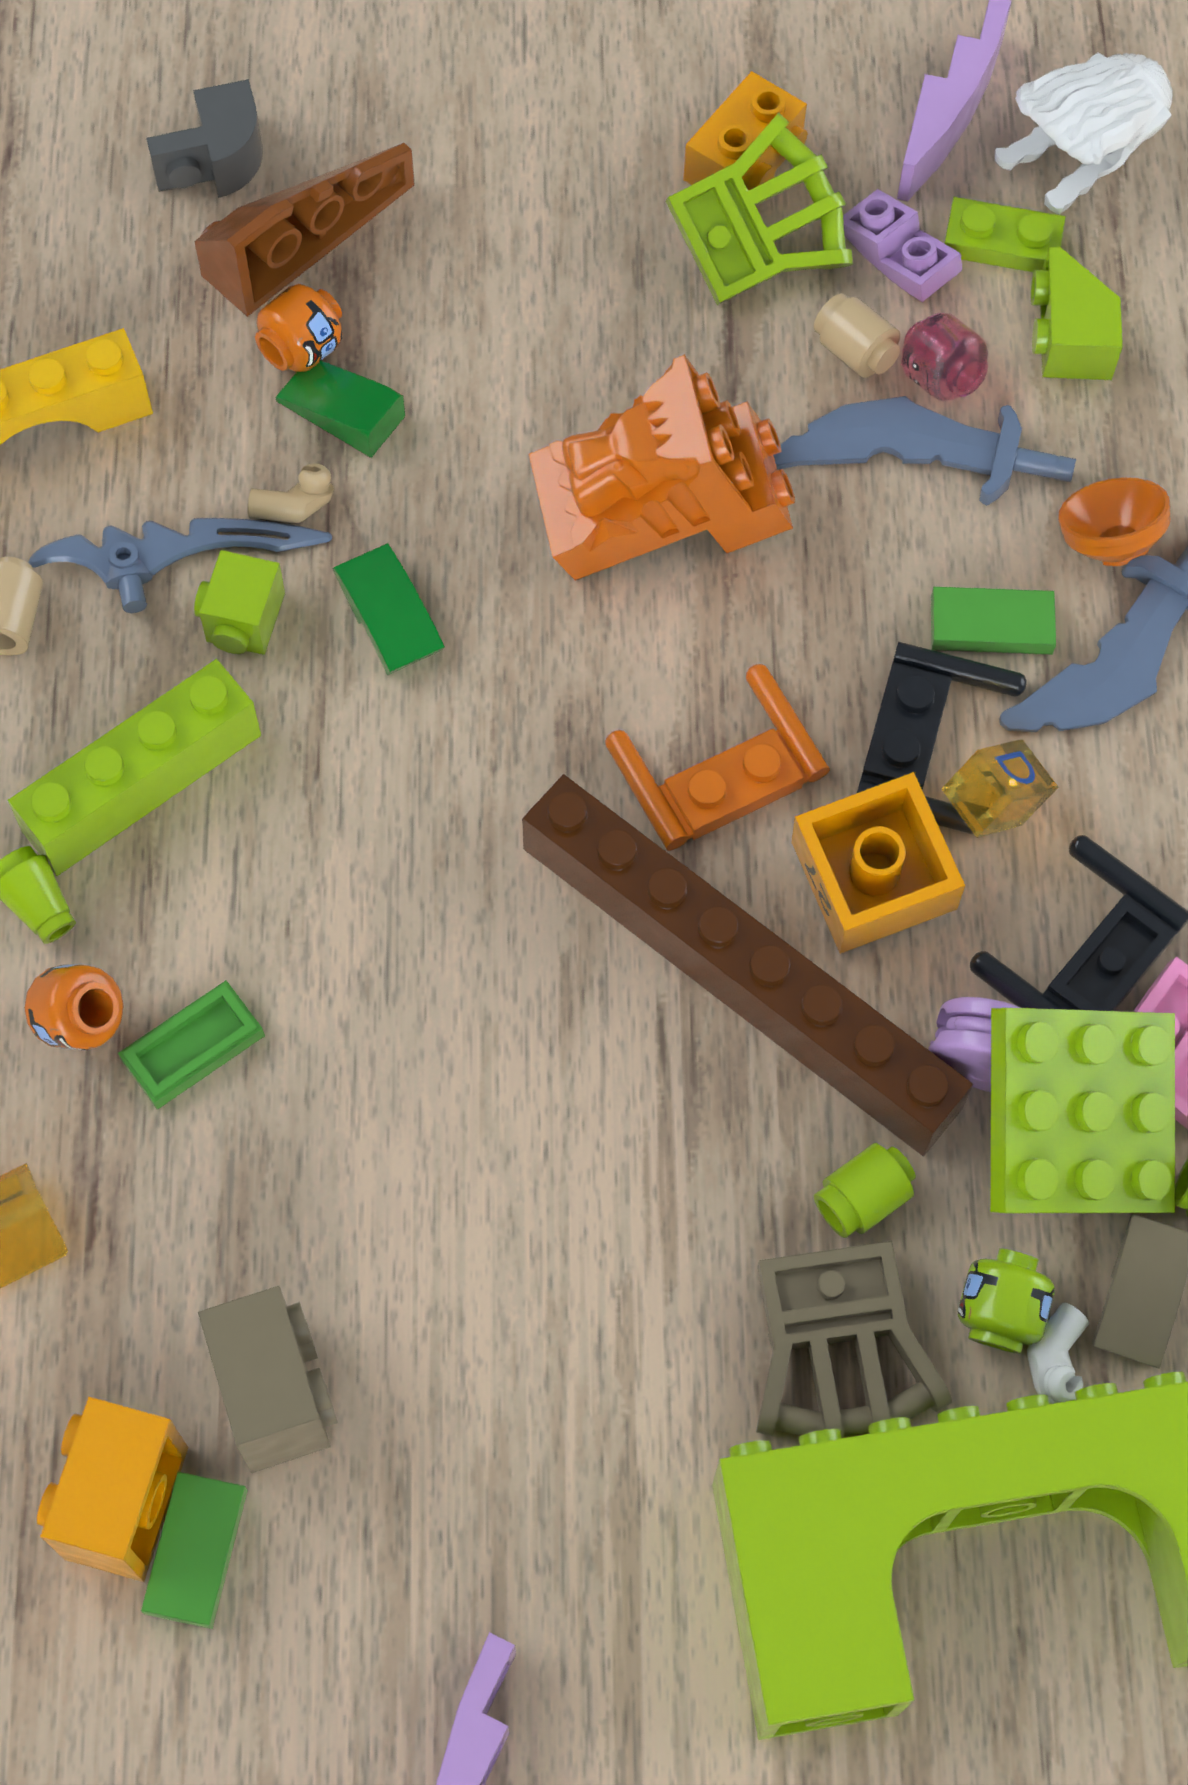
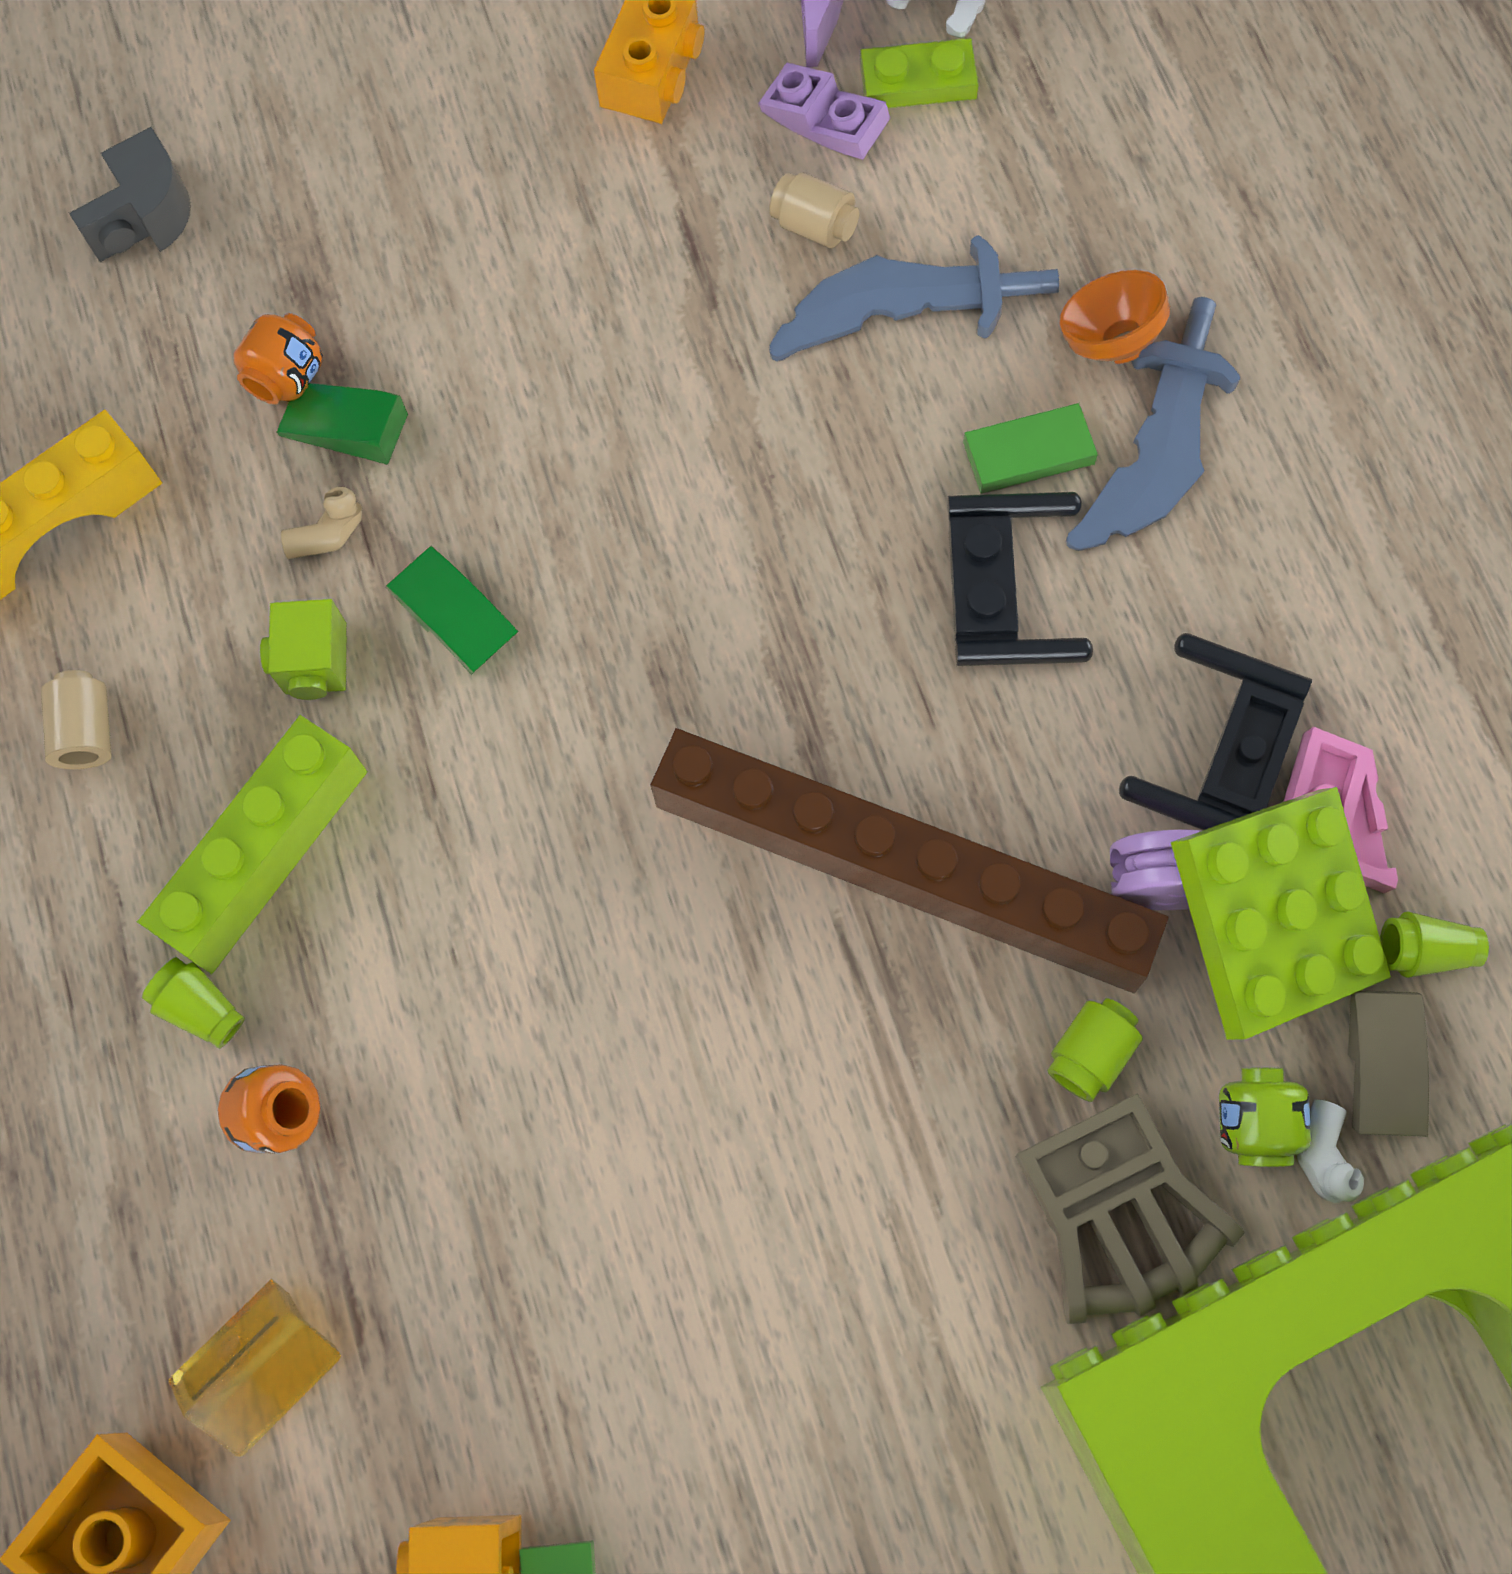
camera: 10 degrees left, 5 degrees up
(130, 562) = (185, 638): sand blue piece -> none
(191, 1044) = (396, 1105): bright green tile -> none
(262, 1374) = (579, 1434): dark tan brick -> none
(284, 234) = (234, 269): dark orange wedge -> none
(661, 476) = (675, 403): orange brick -> none
(728, 233) = (661, 144): lime plate -> none
(731, 781) = (833, 681): orange plate -> none
(877, 862) = (1003, 721): light orange brick -> none
(945, 357) = (903, 206): clear pink head -> none
(999, 788) = (1093, 612): clear yellow brick -> none
(1078, 320) = (1015, 135): lime slope -> none

